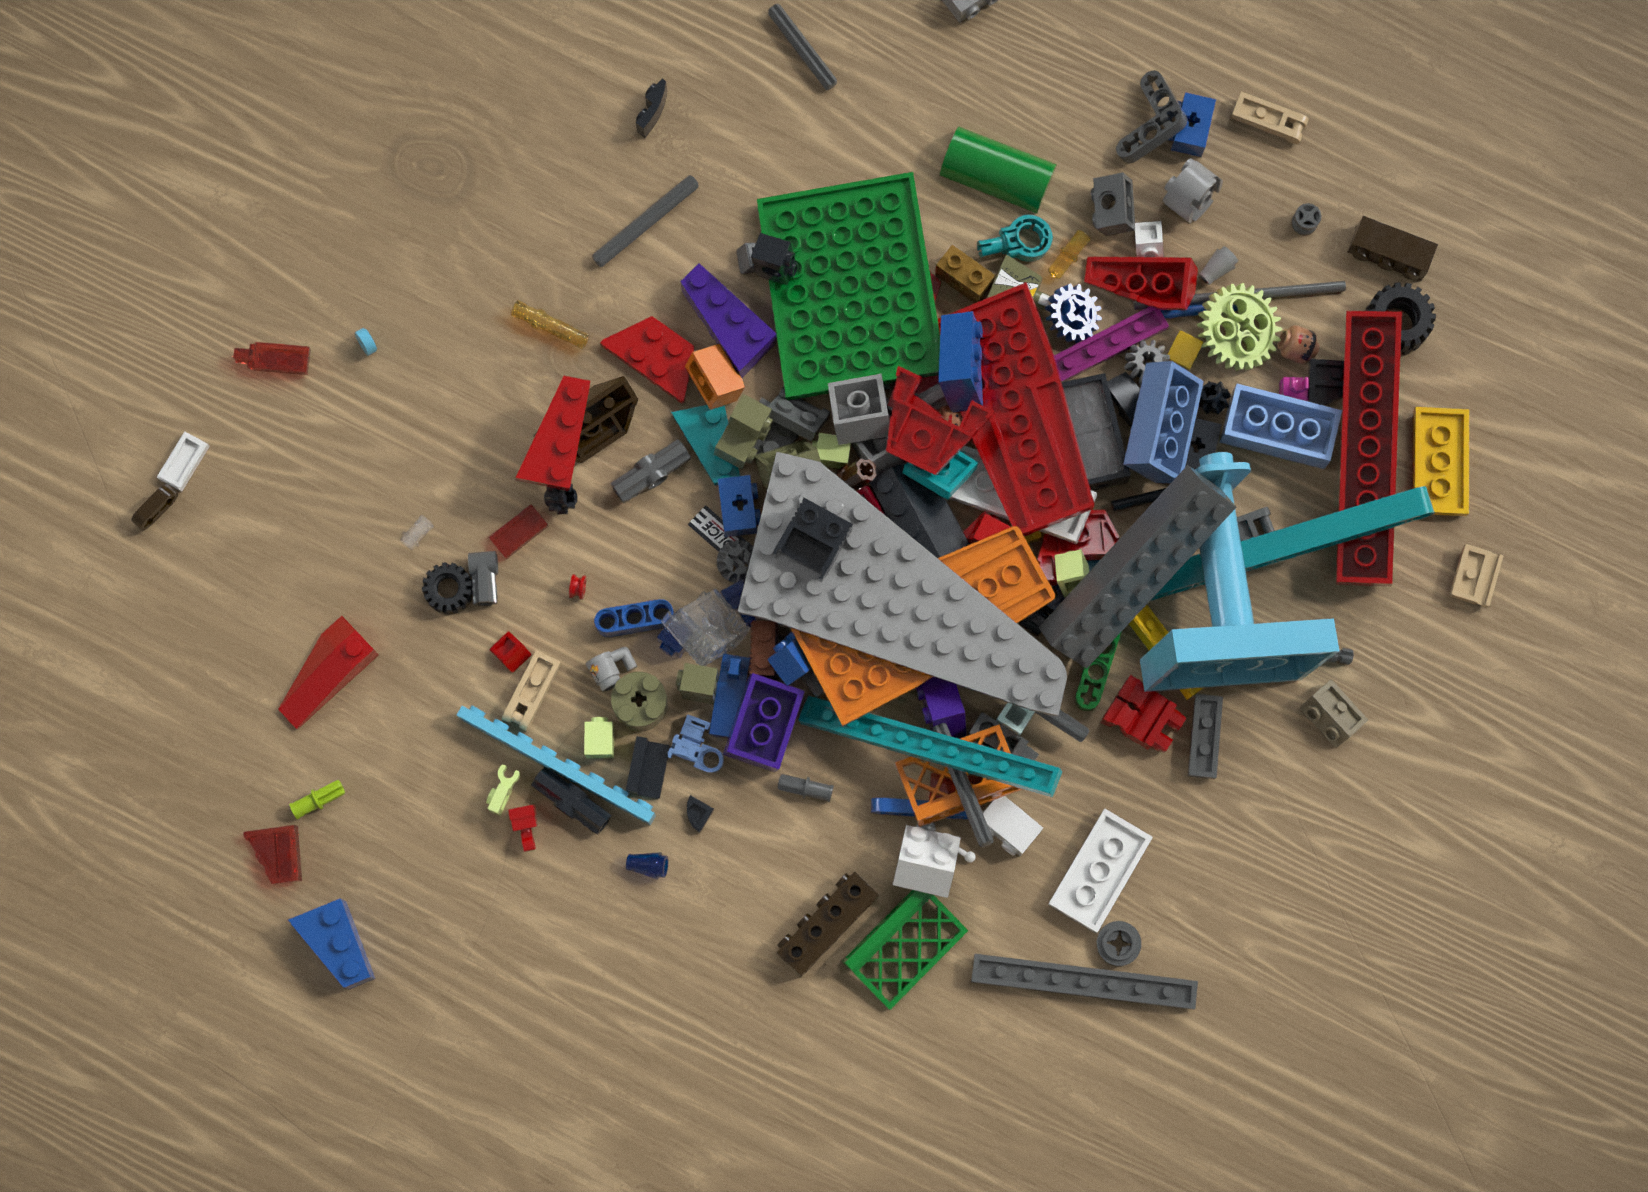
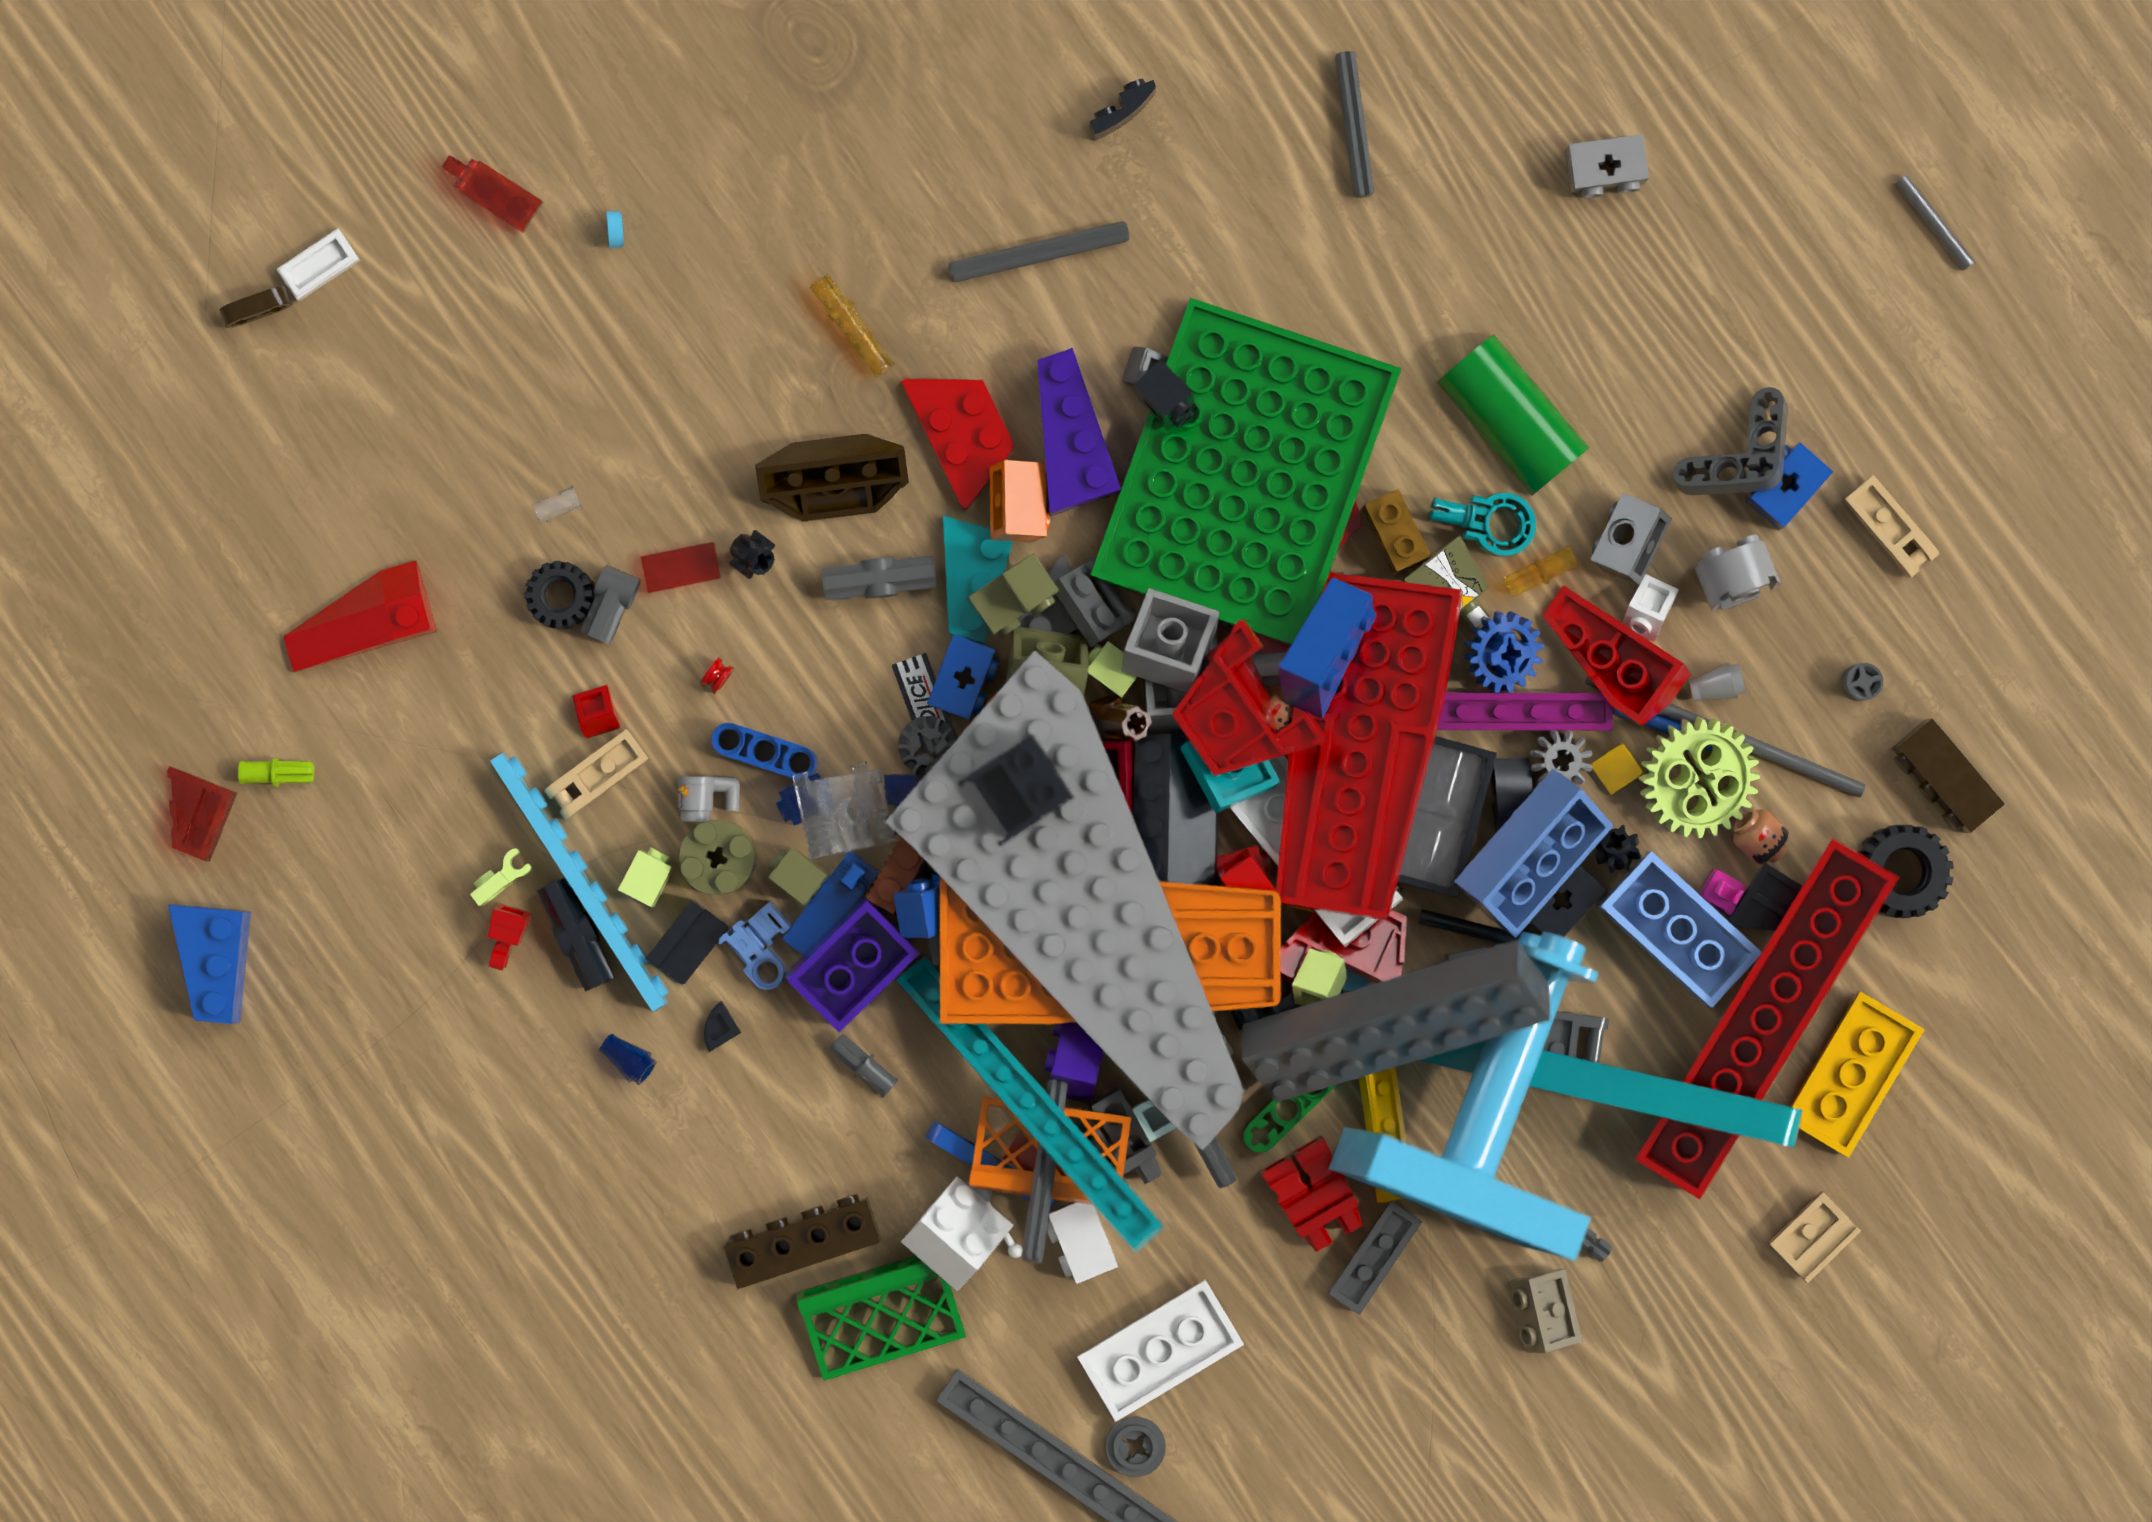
camera: 30 degrees right, 10 degrees up
(555, 445) = (774, 495): red wedge -> none

